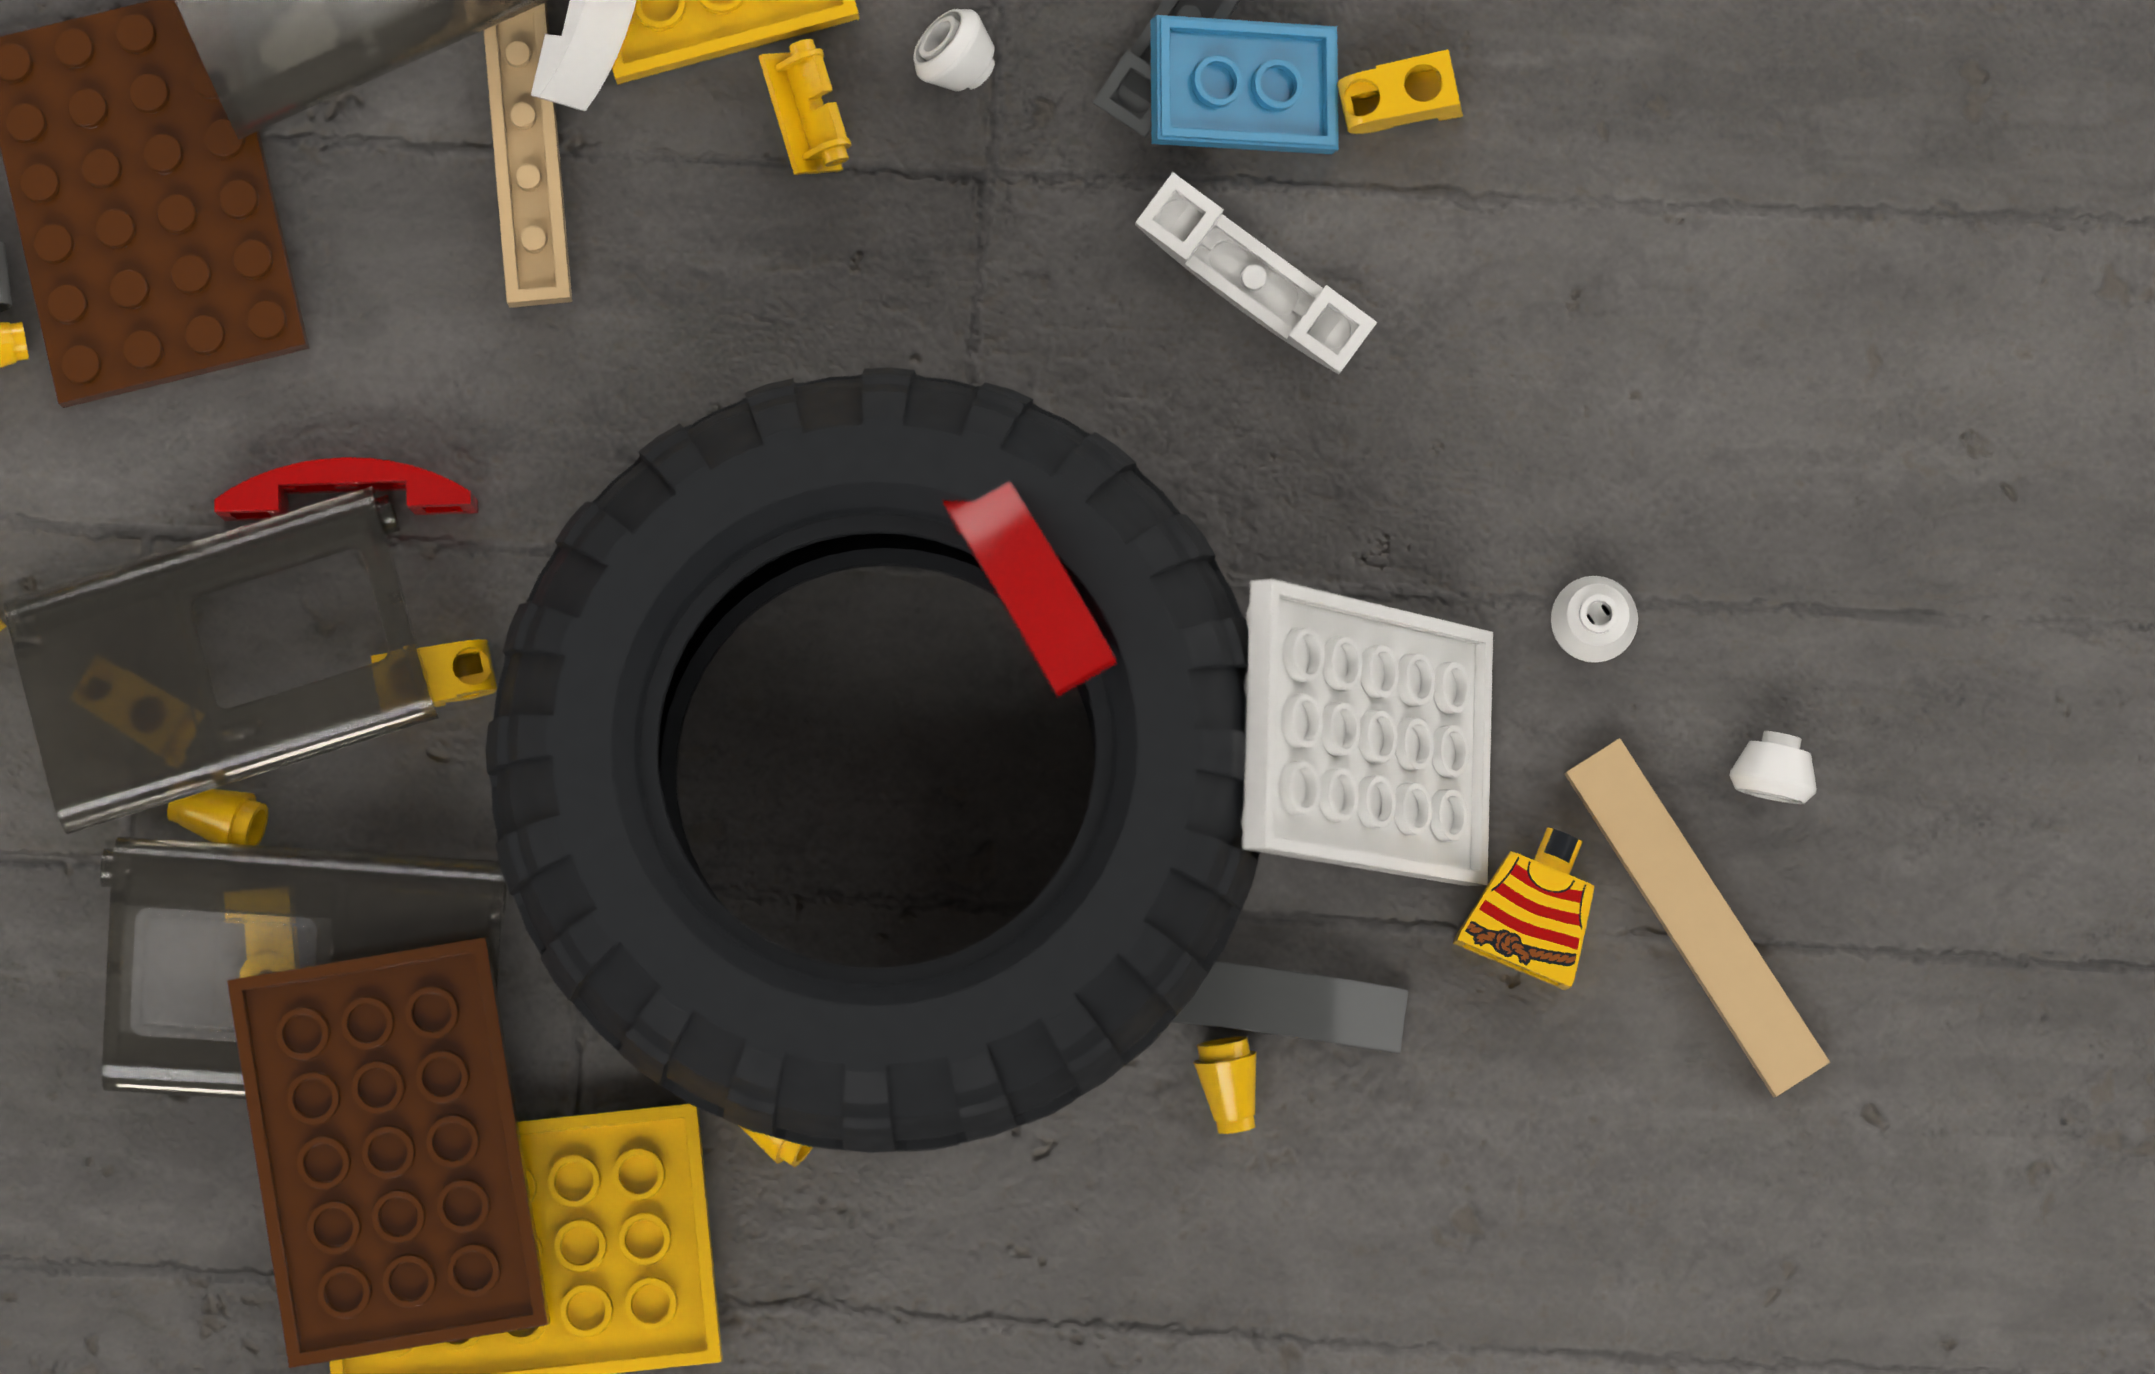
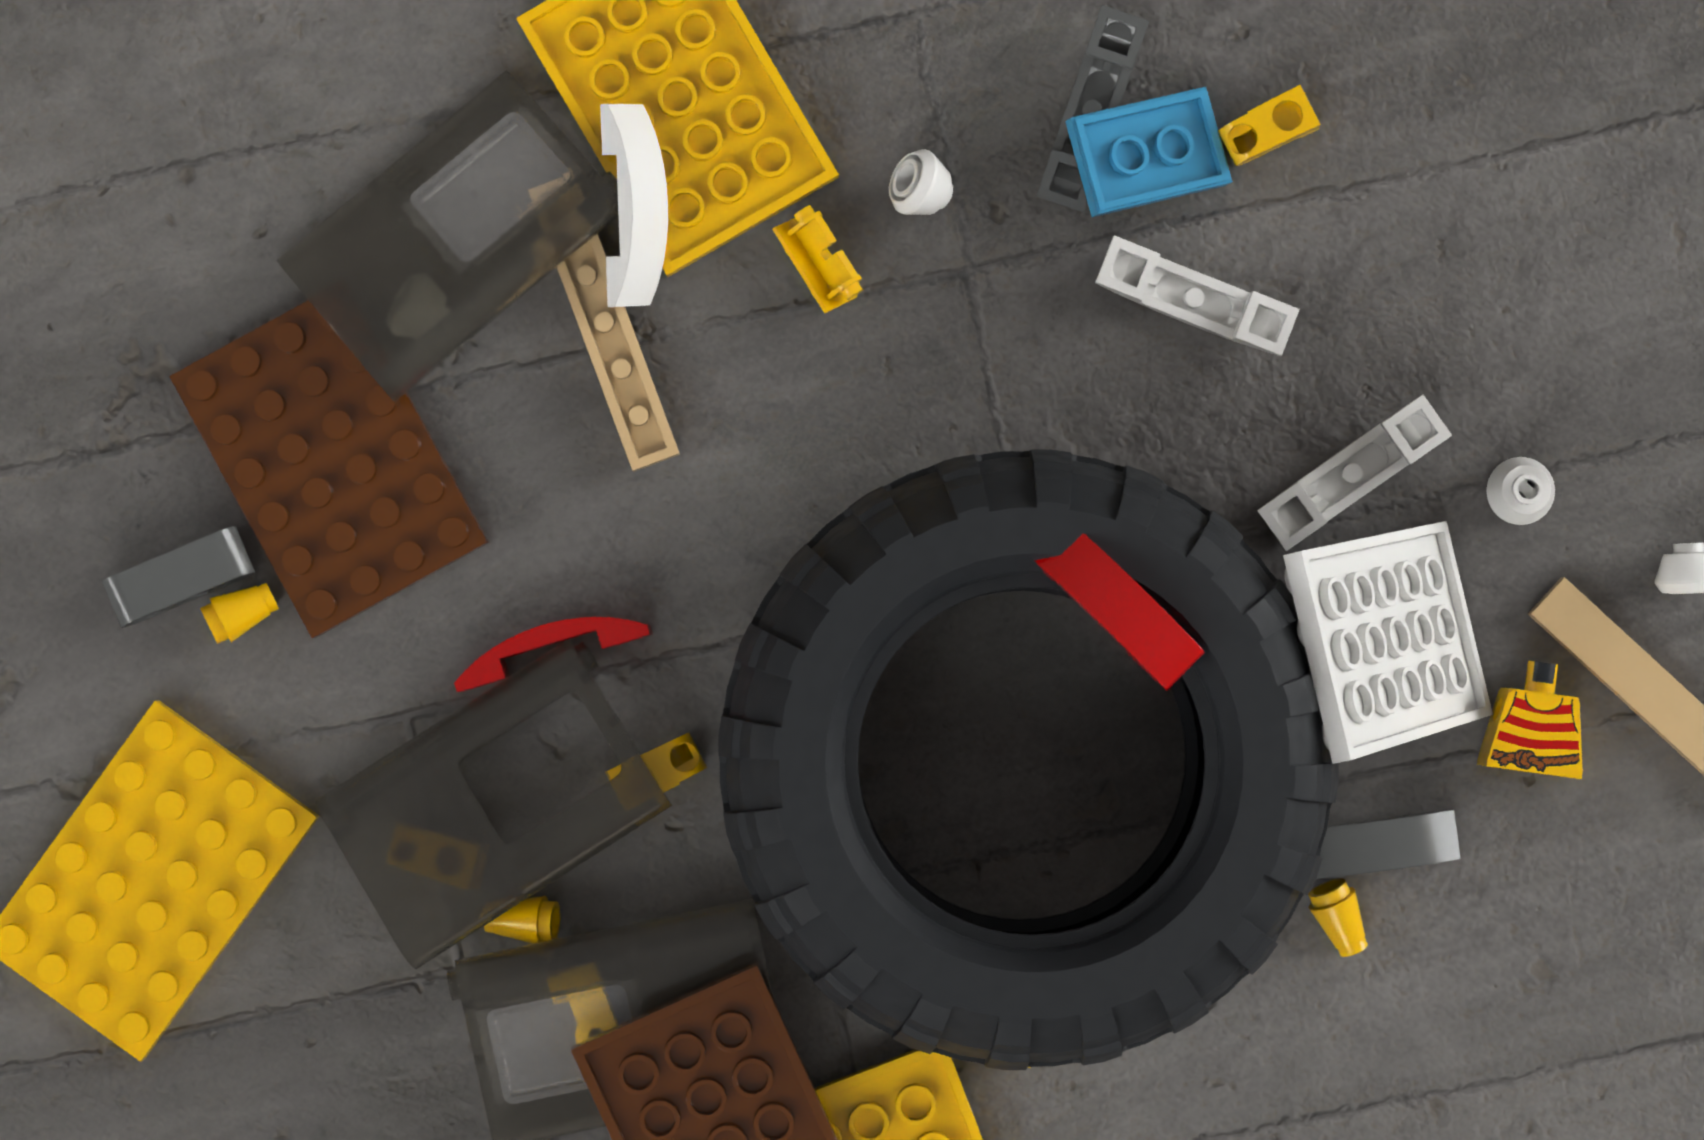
camera: 15 degrees left, 5 degrees up
(1399, 537) = (1354, 472): none -> white slope

